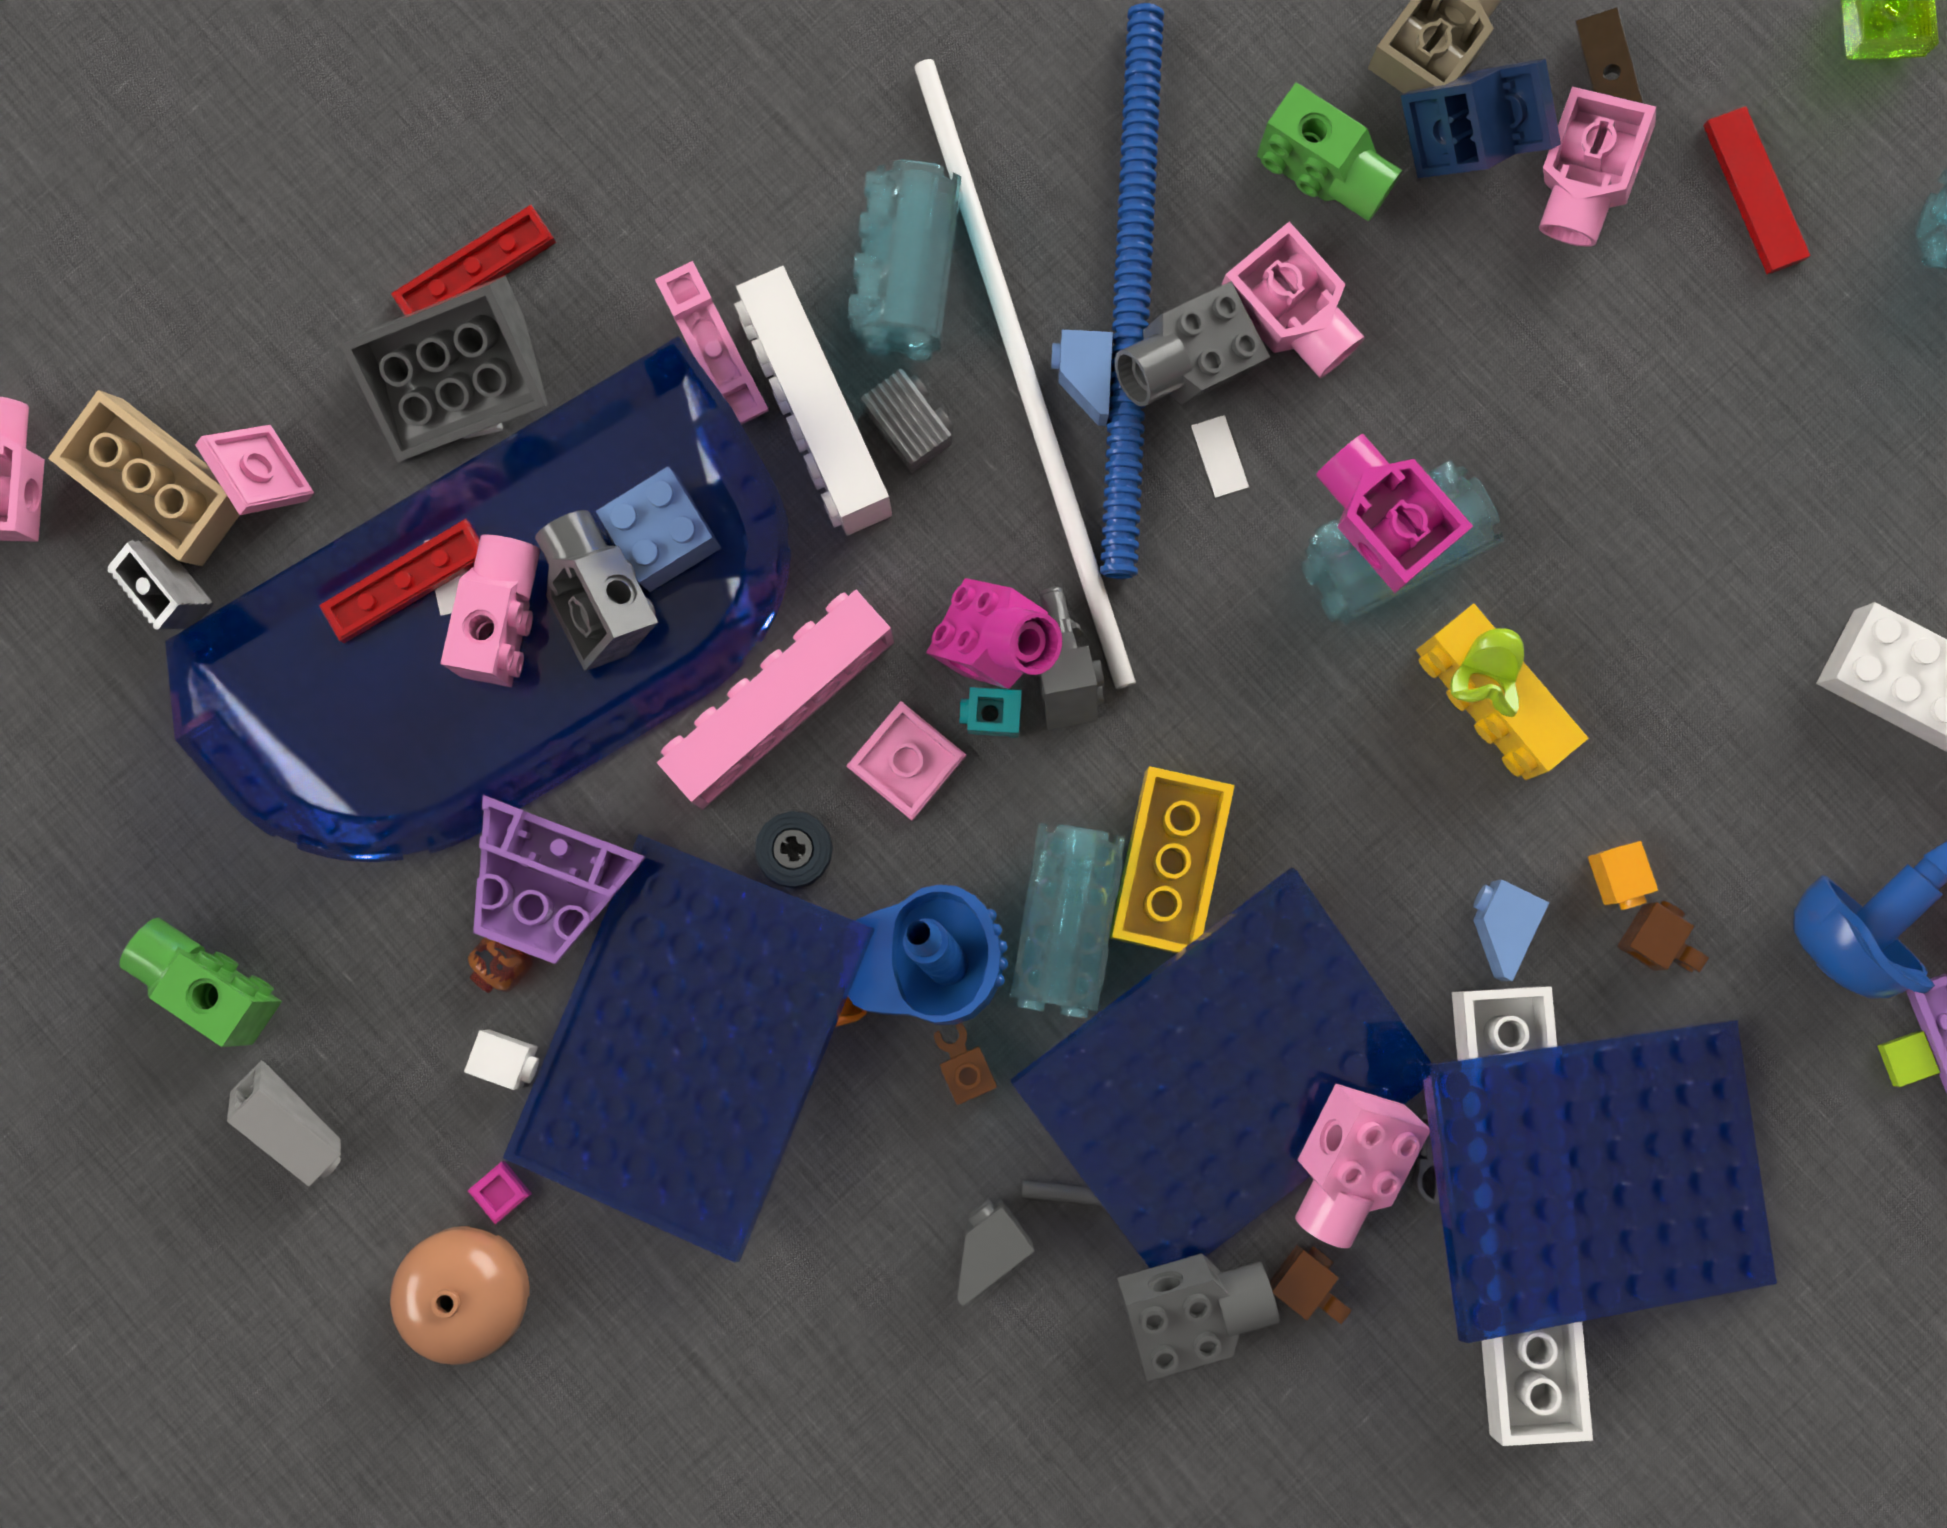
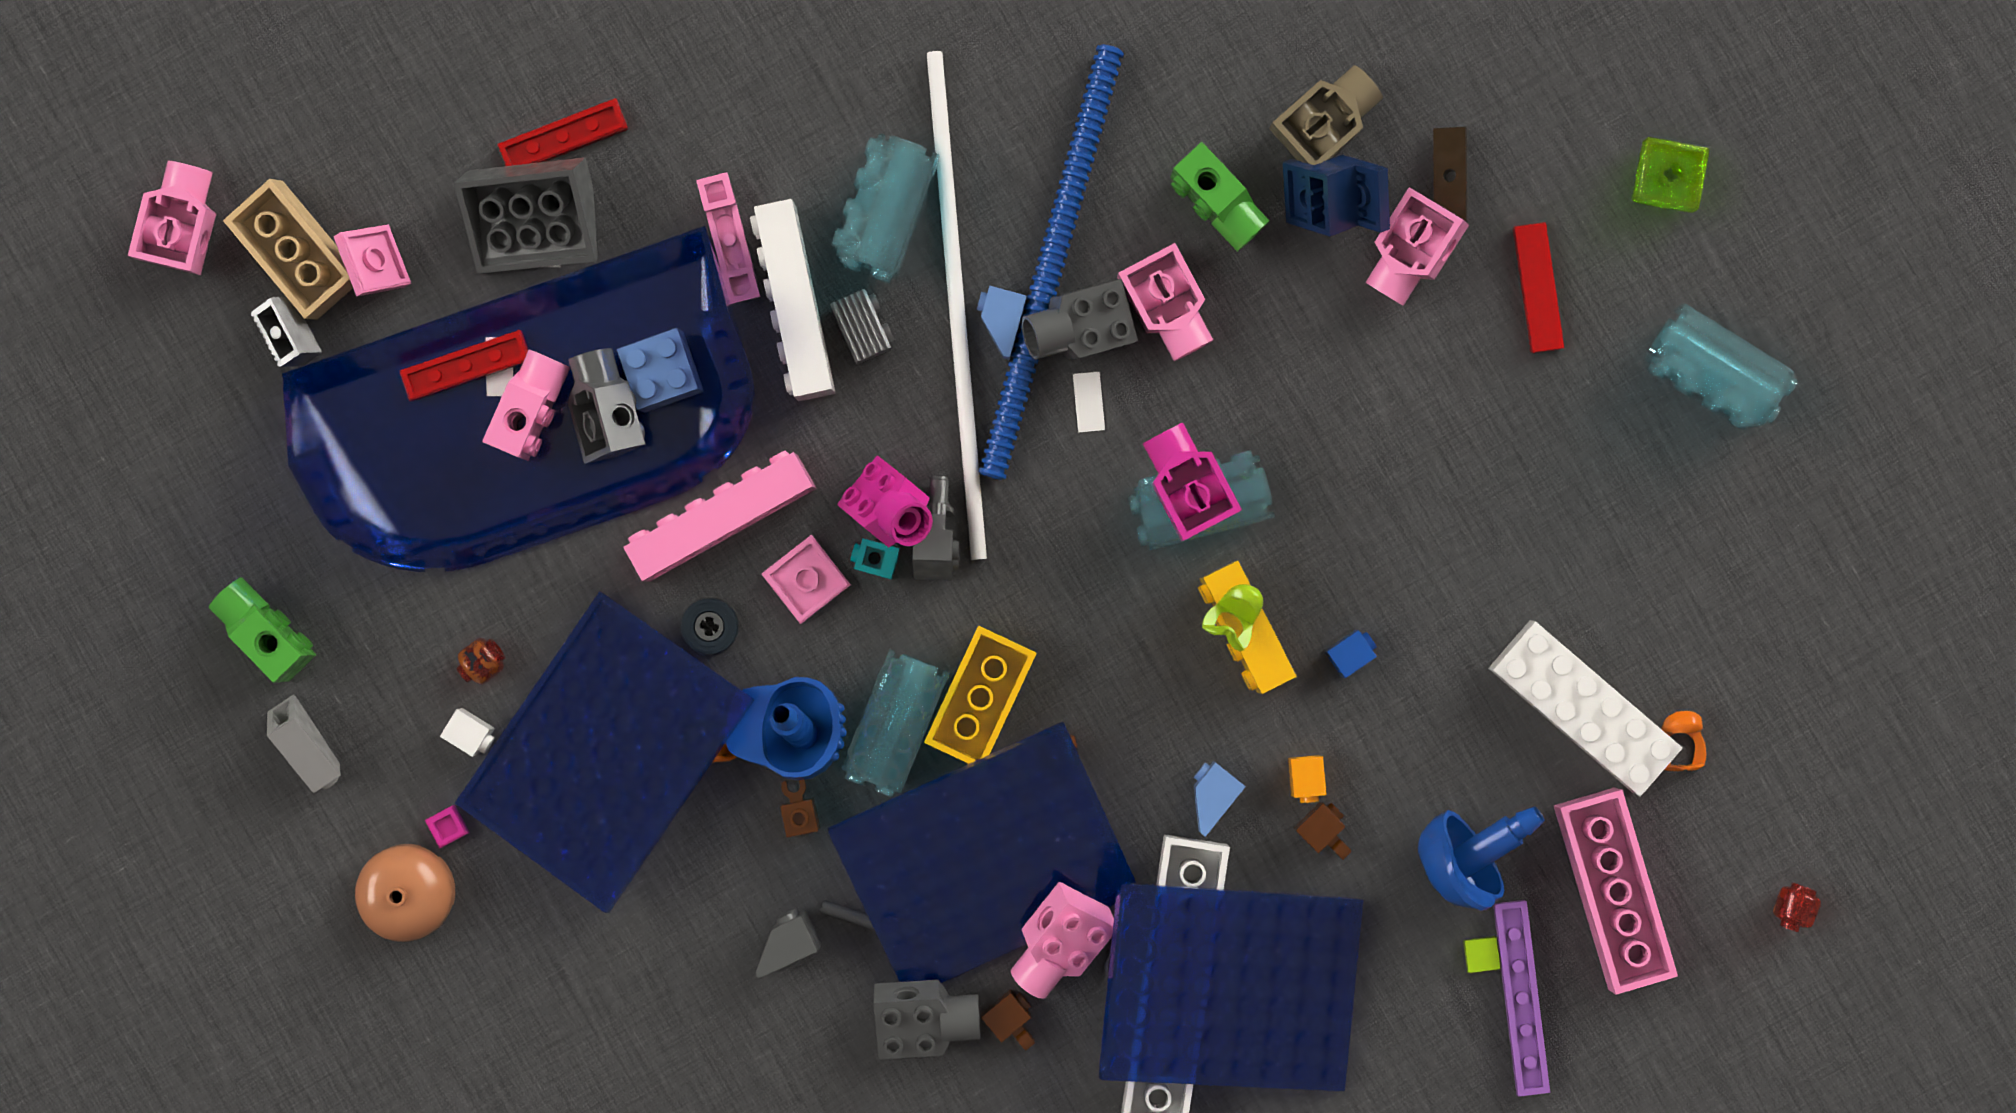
camera: 15 degrees right, 5 degrees up
(542, 881) = (524, 610): medium lavender wedge -> none
(1639, 700) = (1351, 653): none -> blue brick

